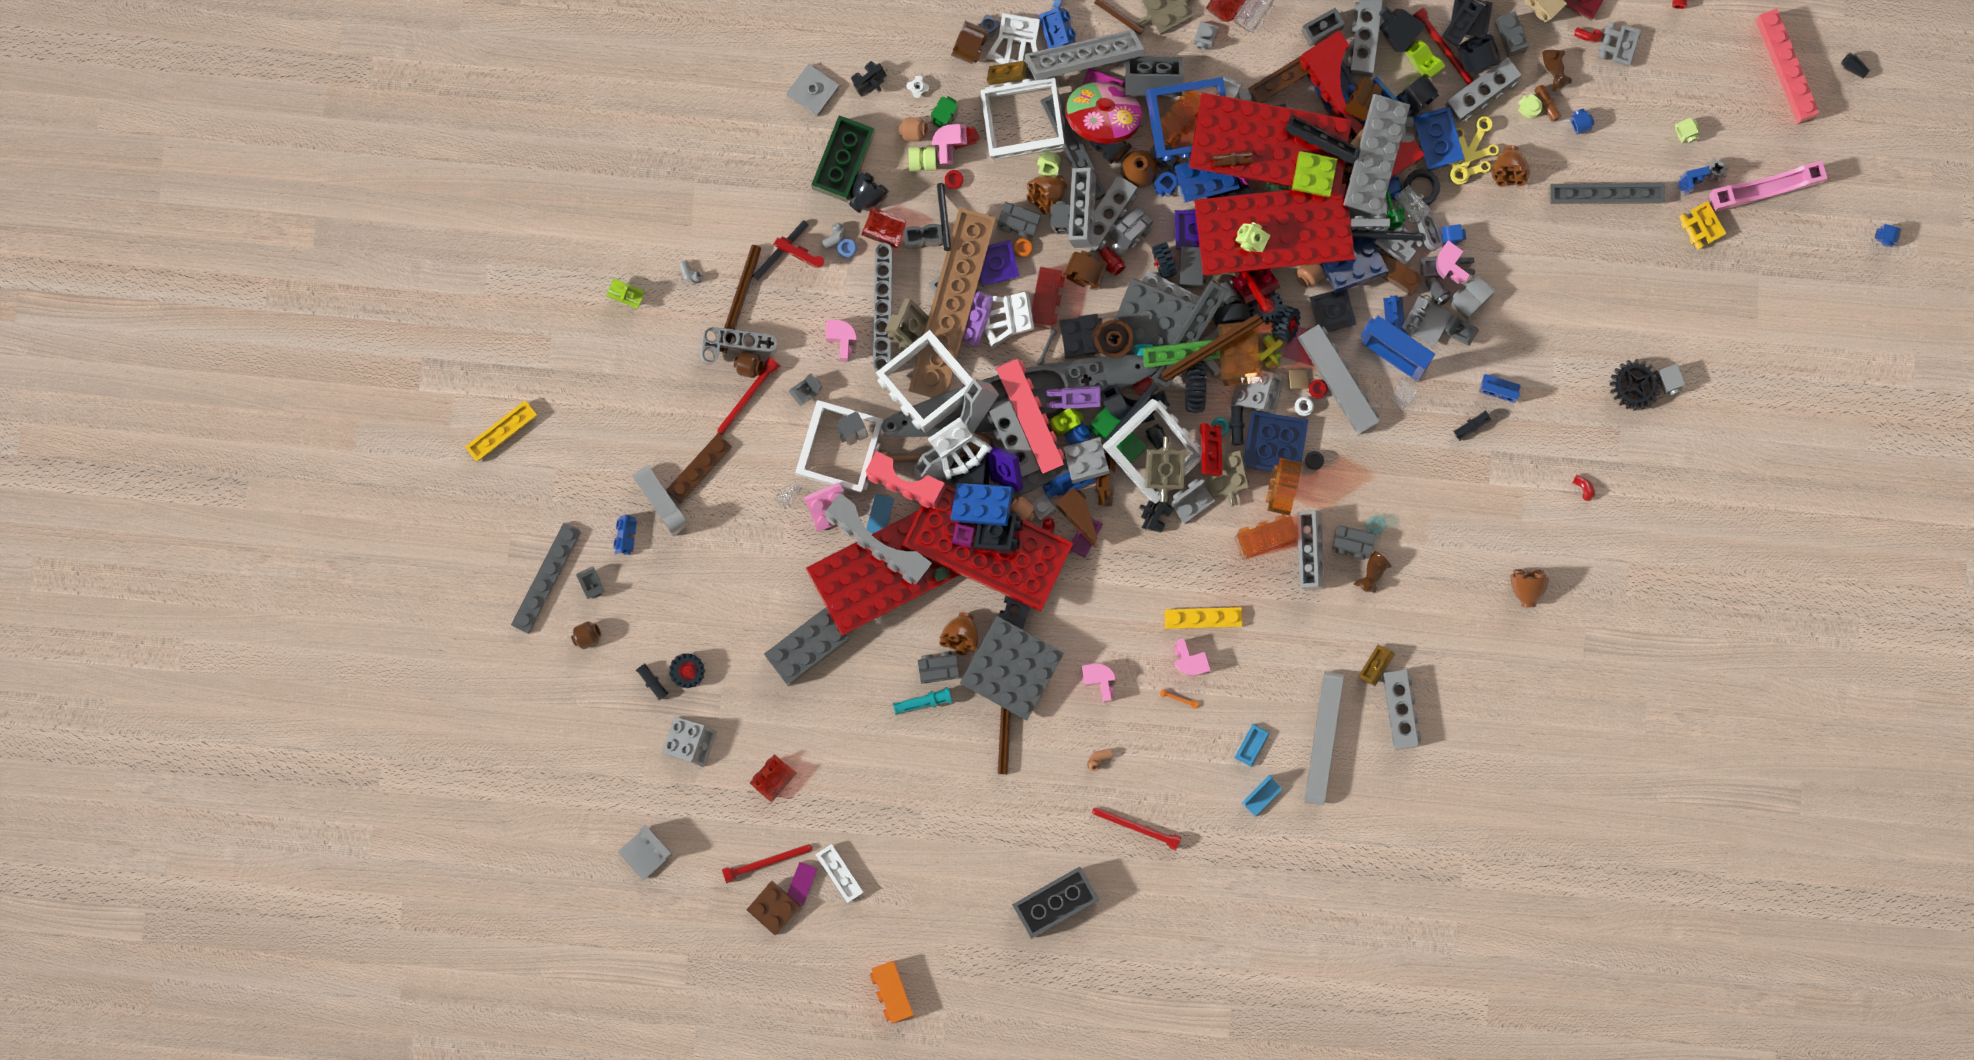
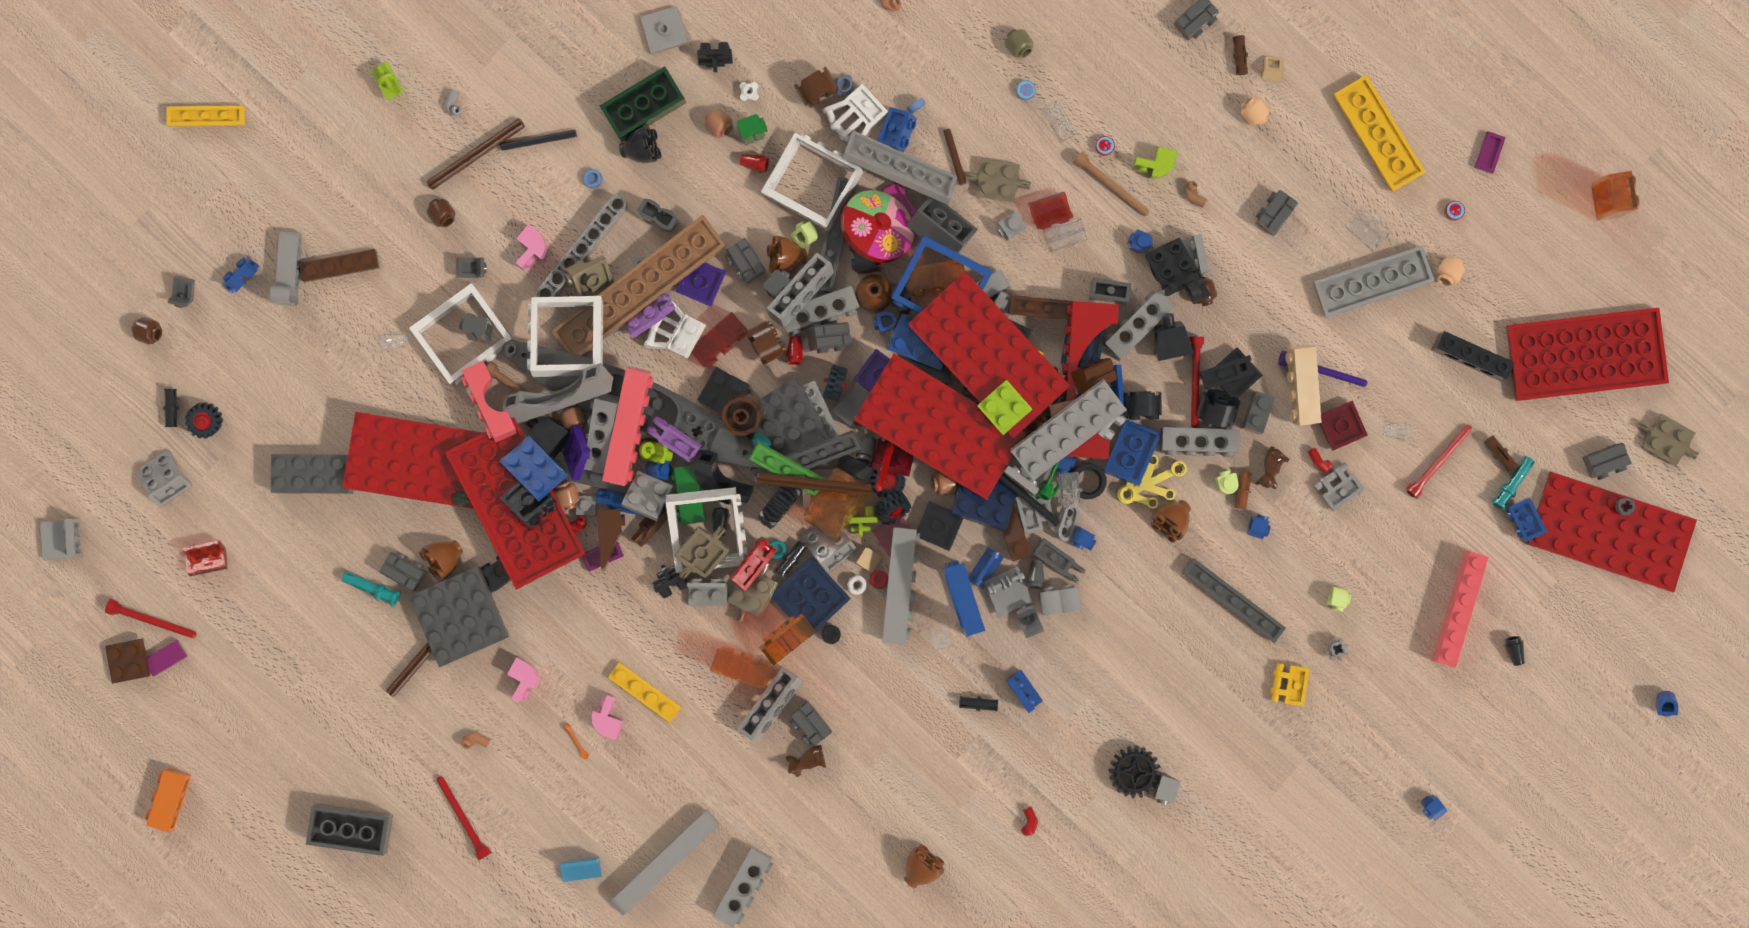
camera: 30 degrees right, 5 degrees up
(546, 578) = (152, 260): dark grey plate -> none
(739, 344) = (444, 190): light grey beam -> none
(769, 367) = (457, 228): red piece -> none
(798, 252) = (550, 153): red plate -> none
(819, 503) = (415, 375): bright pink plate -> none
(838, 232) = (589, 163): light grey arm -> none
(839, 873) = (200, 673): white plate -> none
(845, 515) = (417, 393): light grey arch -> none
(879, 513) = (453, 411): dark azure tile -> none
(884, 227) = (633, 185): clear red bracket -> none
(922, 158) = (706, 152): yellowish green wheel -> none
(943, 217) = (687, 211): black bar -> none
(946, 138) = (737, 151): bright pink brick -> none
(951, 439) = (545, 398): white plate -> none
(953, 179) = (720, 188): red tile -> none
(963, 535) = (500, 481): magenta tile -> none
(1006, 72) = (827, 134): pearl gold plate -> none
(1023, 247) = (732, 285): orange tile -> none
(1053, 332) = (676, 387): dark grey hinge -> none
(1136, 407) = (714, 485): black bar -> none
(1141, 386) = (741, 471): red plate -> none
(1232, 159) = (946, 344): reddish brown pin -> none
(1251, 745) = (604, 823): dark azure tile -> none
(1252, 237) = (914, 420): yellowish green brick -> none
(1322, 139) = (1032, 384): black plate -> none
(1375, 518) = (844, 718): clear light blue plate -> none
(1376, 665) = (751, 836): pearl gold plate -> none
(1423, 59) = (1171, 379): lime brick -> none
(1446, 263) = (1058, 558): bright pink brick -> none
(1692, 178) = (1305, 640): blue bracket -> none
(1757, 190) = (1367, 694): bright pink arch -> none

